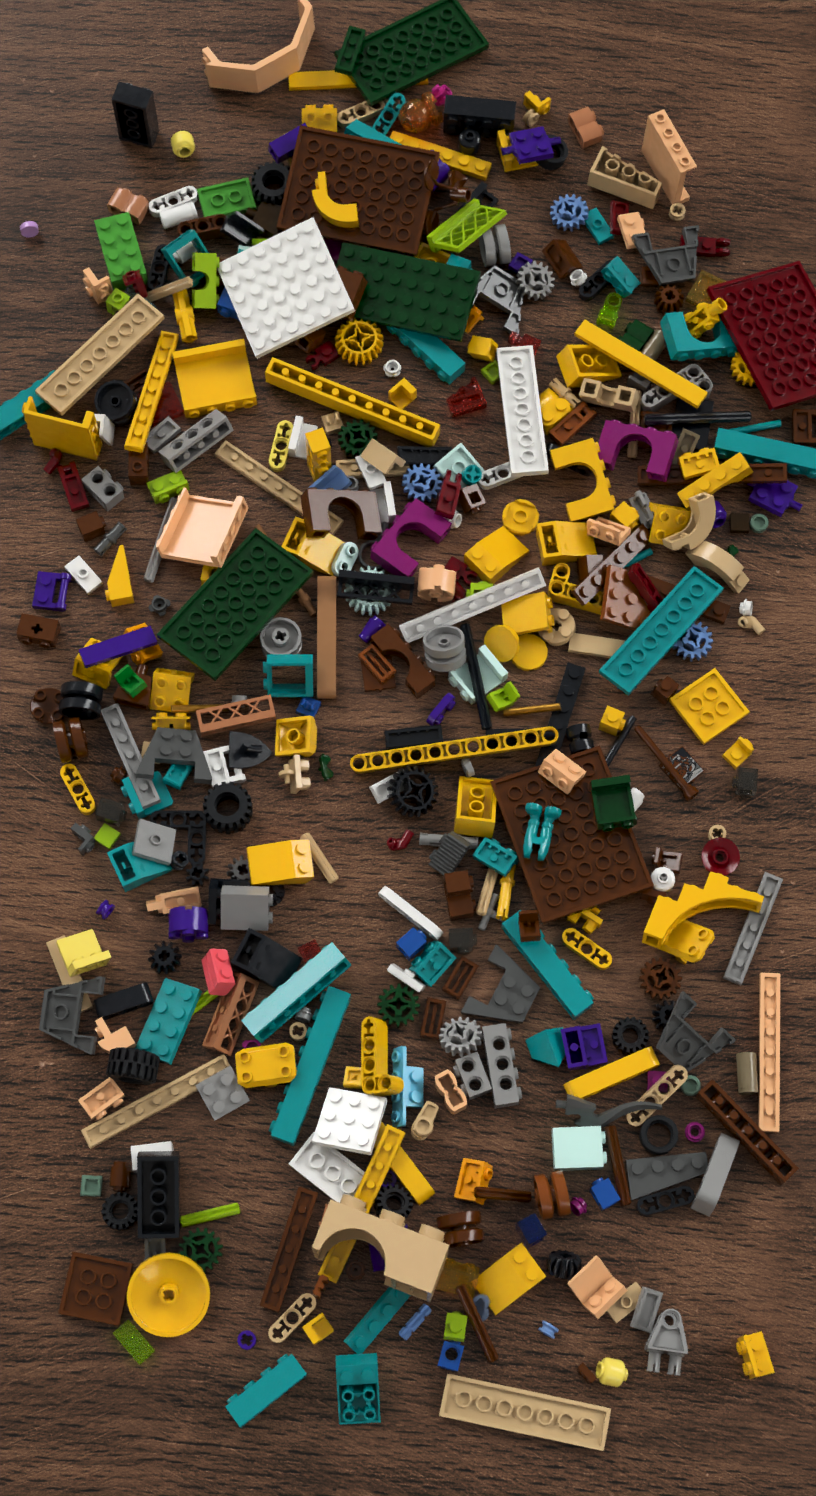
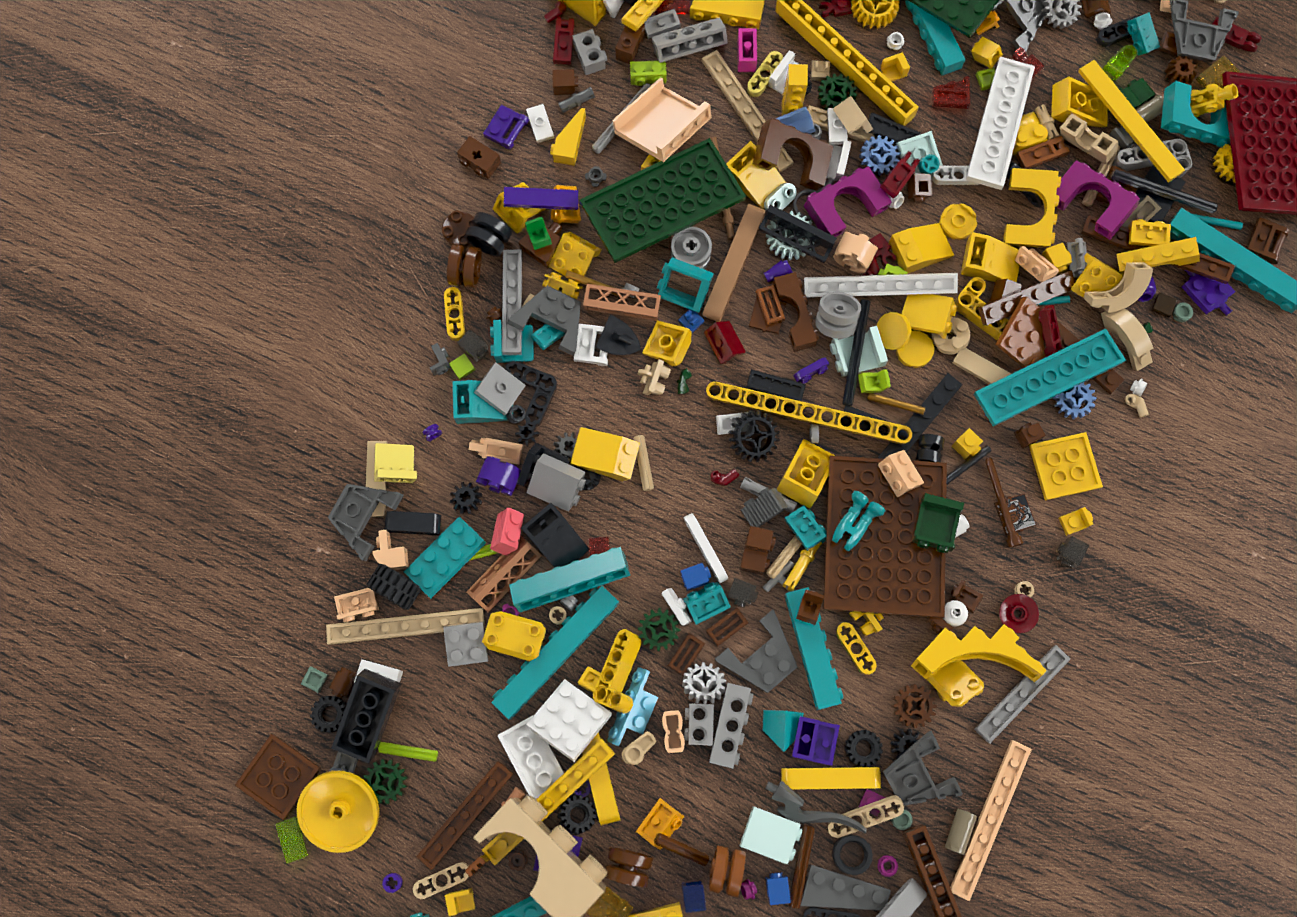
camera: 25 degrees right, 5 degrees up
(222, 793) = (574, 369): black tyre -> none
(255, 430) = (747, 49): none -> dark pink brick
(347, 714) = (724, 341): none -> dark red panel

